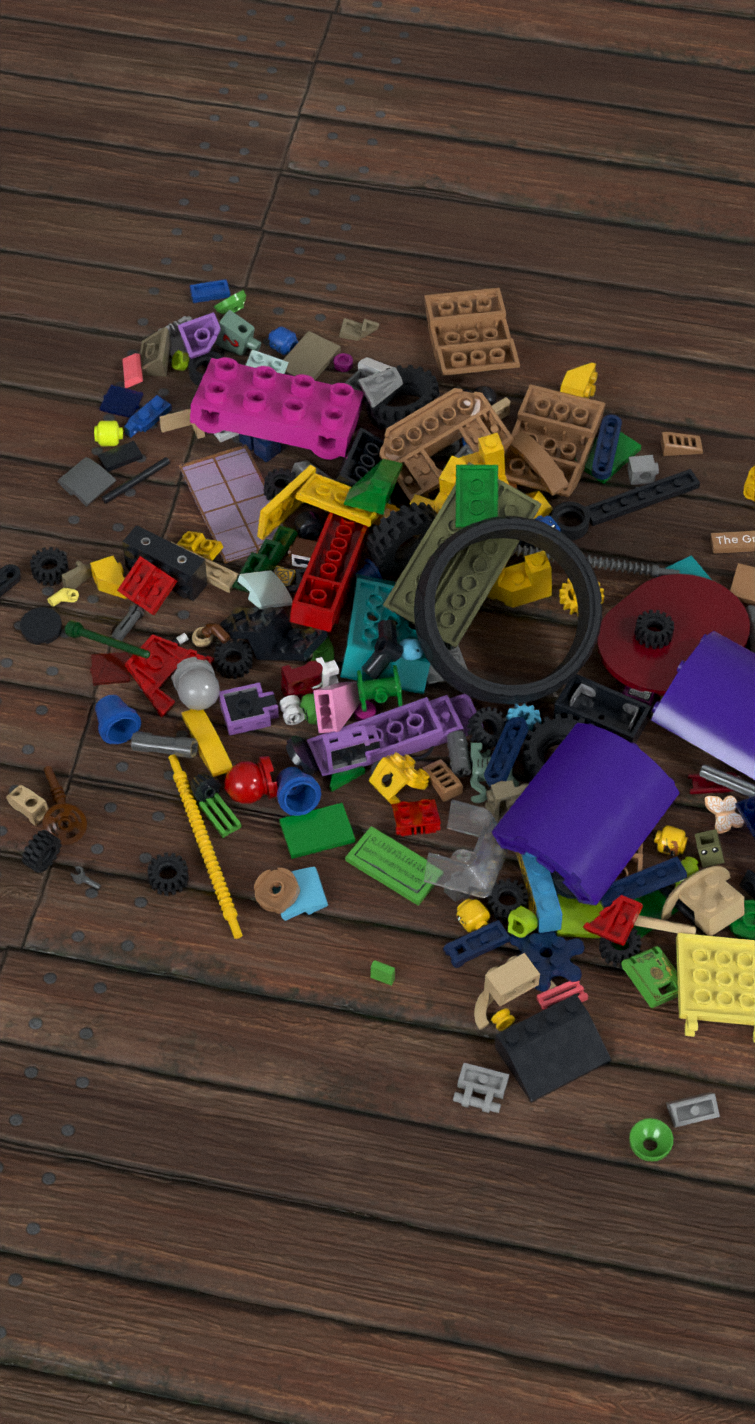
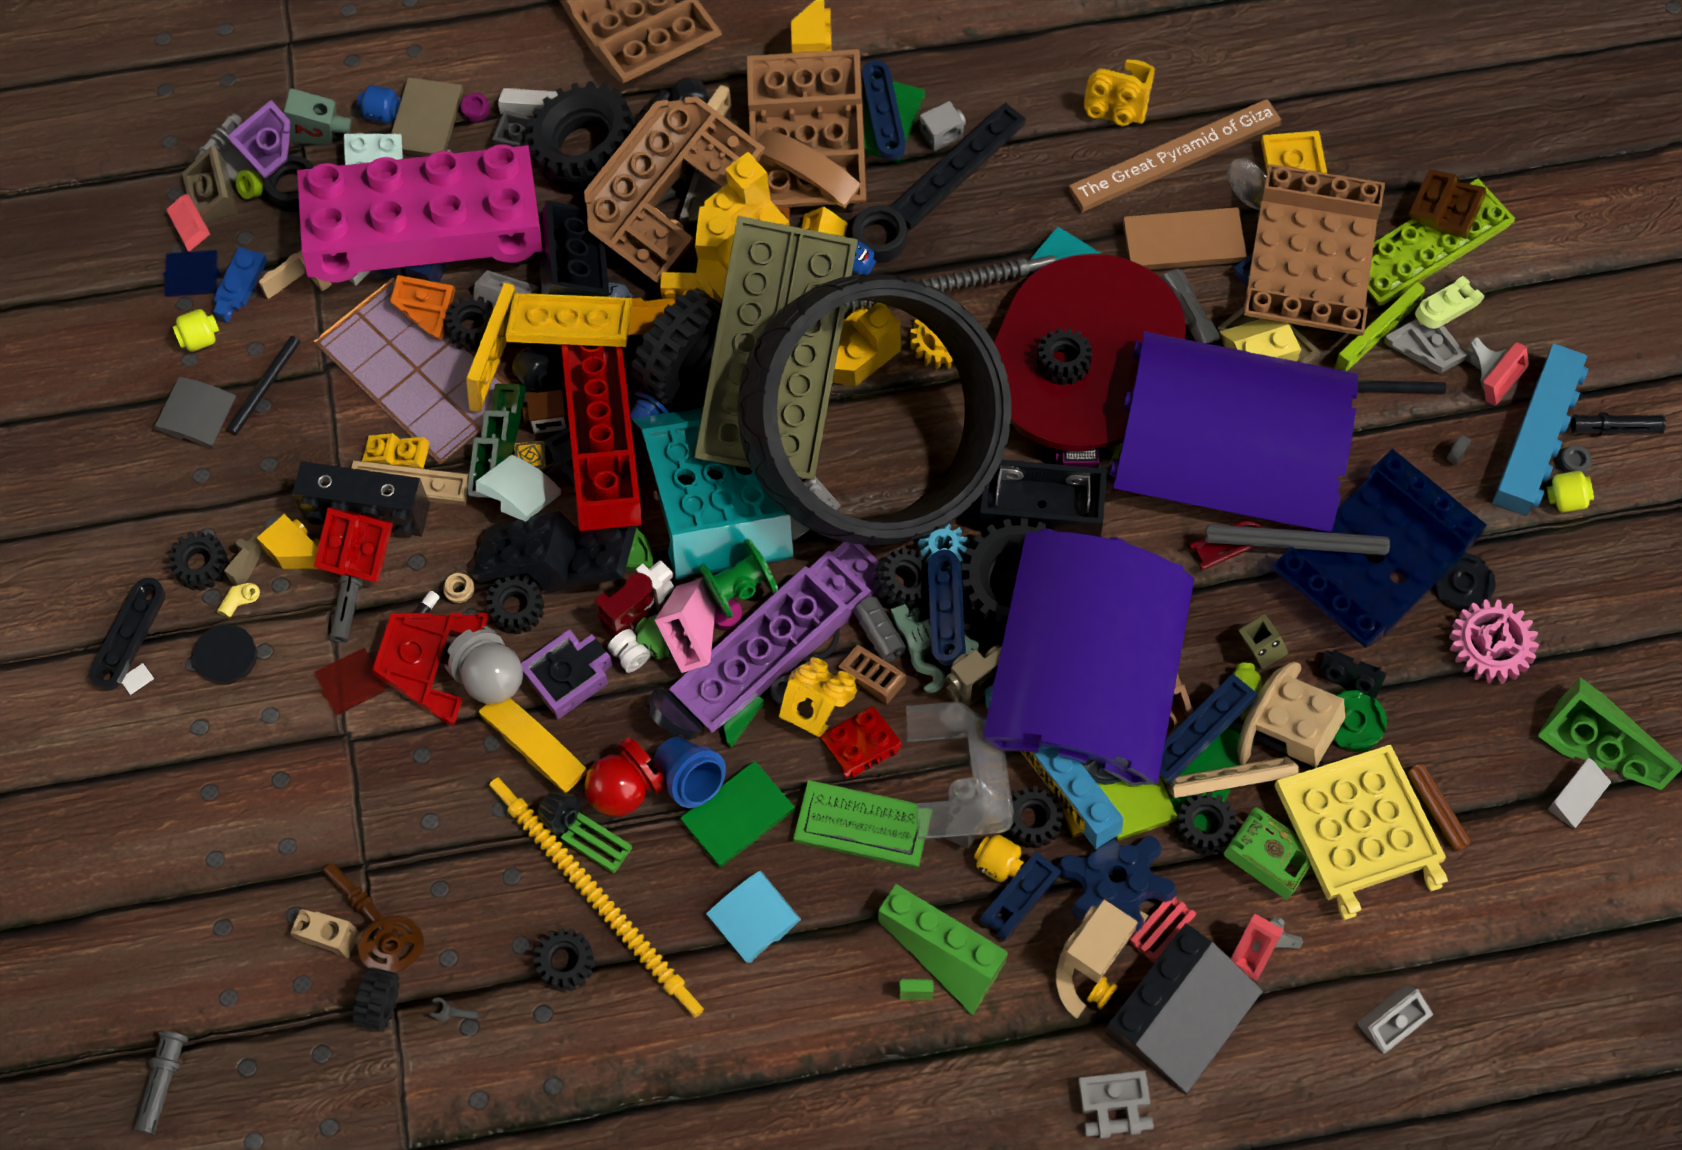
camera: 20 degrees left, 10 degrees up
(75, 629) = (277, 643): dark green piece -> none
(116, 720) = (394, 759): blue piece -> none
(120, 456) = (226, 357): black tile -> none
(164, 744) = (454, 774): dark grey axle -> none
(209, 291) = (244, 64): blue tile -> none
(217, 630) = (478, 574): reddish brown arm -> none
(232, 303) = (285, 73): bright green piece -> none
(256, 464) = (423, 303): none -> orange wing
(280, 901) = (715, 911): medium nougat plate -> none
(350, 747) = (739, 683): medium lavender piece -> none
(355, 330) = (472, 54): dark tan slope -> none
(374, 488) = (608, 285): green wedge -> none
(380, 385) = (548, 130): light grey wing -> none
(386, 649) = (727, 521): black piece -> none
(411, 649) = (759, 508): medium azure piece -> none
(413, 955) = (944, 946): none -> bright green wedge
(476, 493) = (767, 260): green tile -> none
(522, 922) = (1070, 846): lime plate -> none
(616, 920) = (1193, 796): red wing -> none
(619, 1024) = (1259, 942): none -> coral piece
(651, 1130) = (1374, 1074): bright green piece -> none
(670, 443) = (971, 80): medium nougat slope -> none
(671, 841) = (1207, 648): yellow head -> none
(724, 813) = (1258, 582): light nougat animal -> none

